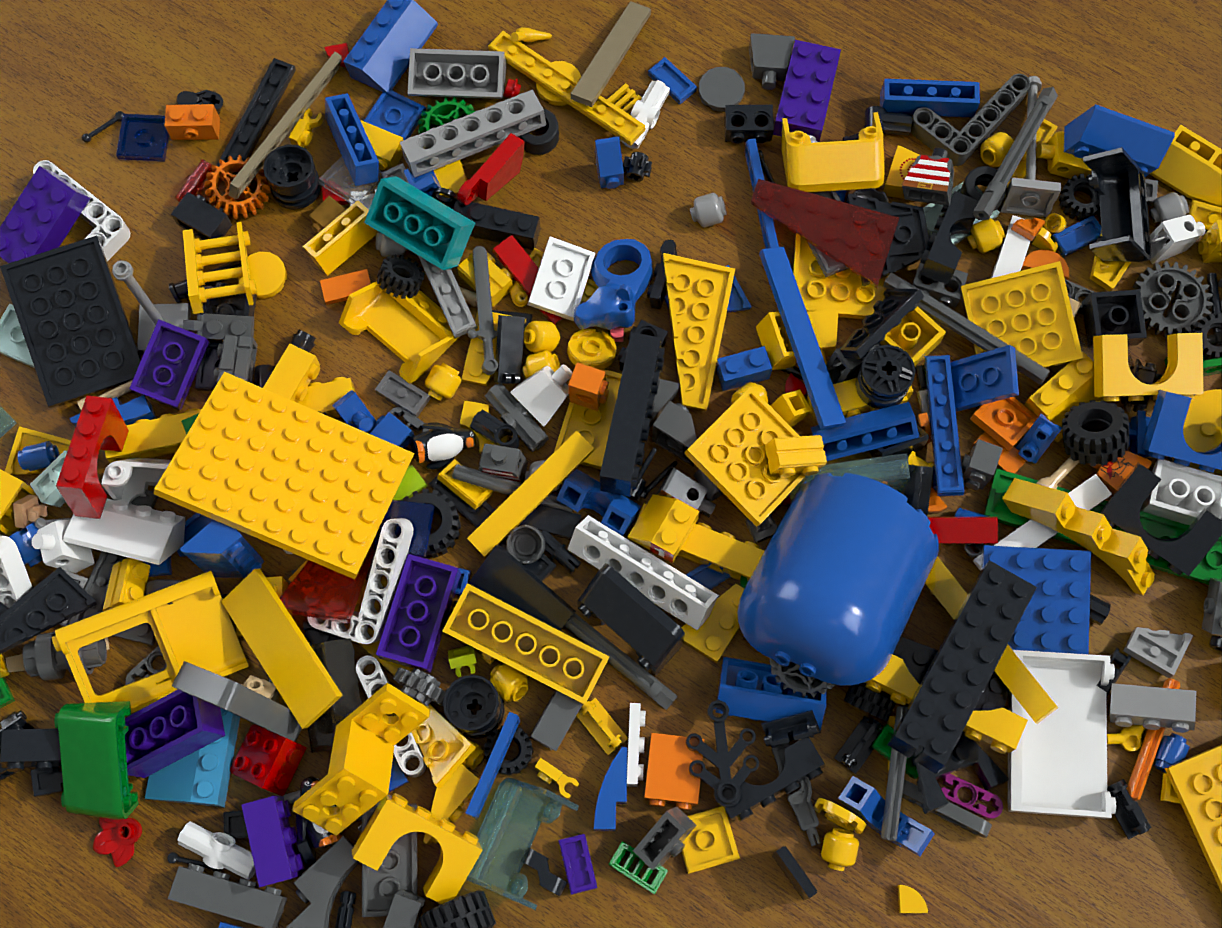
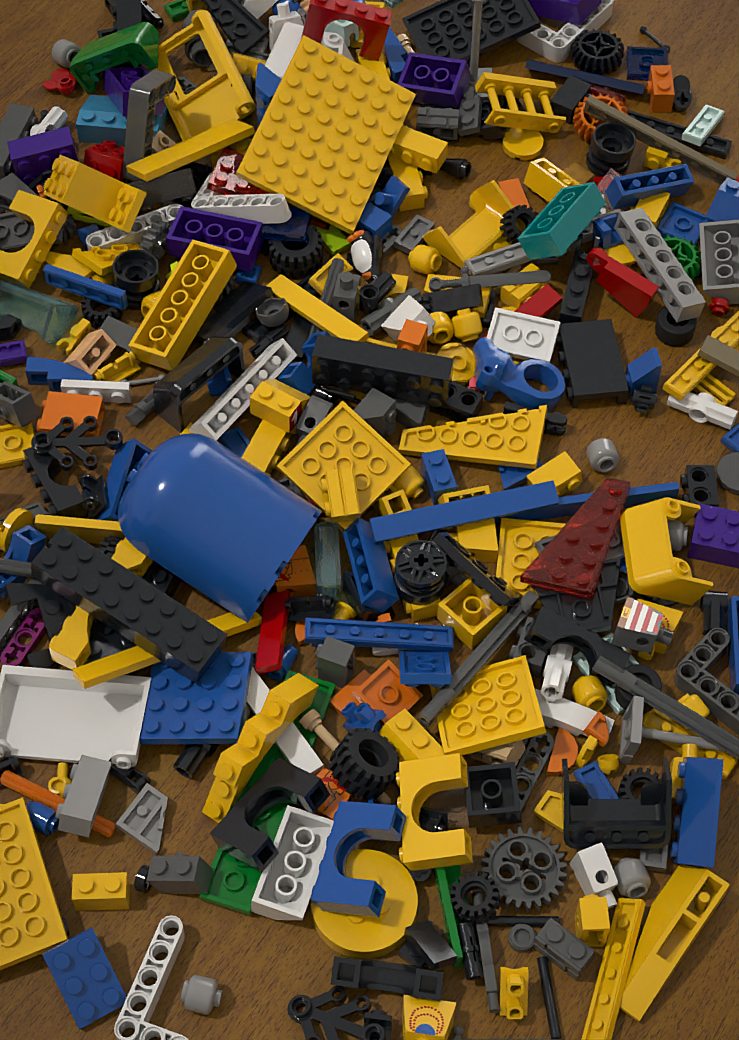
camera: 90 degrees right, 15 degrees down
(71, 835) = (64, 52): none -> light grey head
(120, 179) = (597, 52): none -> black gear
(164, 202) = (586, 76): none -> dark blue tile
(251, 84) = (703, 125): none -> light aqua tile
(587, 758) = (91, 351): none -> light nougat brick
(591, 212) = (591, 361): none -> black panel
(607, 672) = (141, 381): none -> light grey hinge
(741, 254) = (561, 470): none -> yellow brick
(837, 737) = (87, 529): none -> yellow tile
(984, 260) = (557, 671): none -> white piece

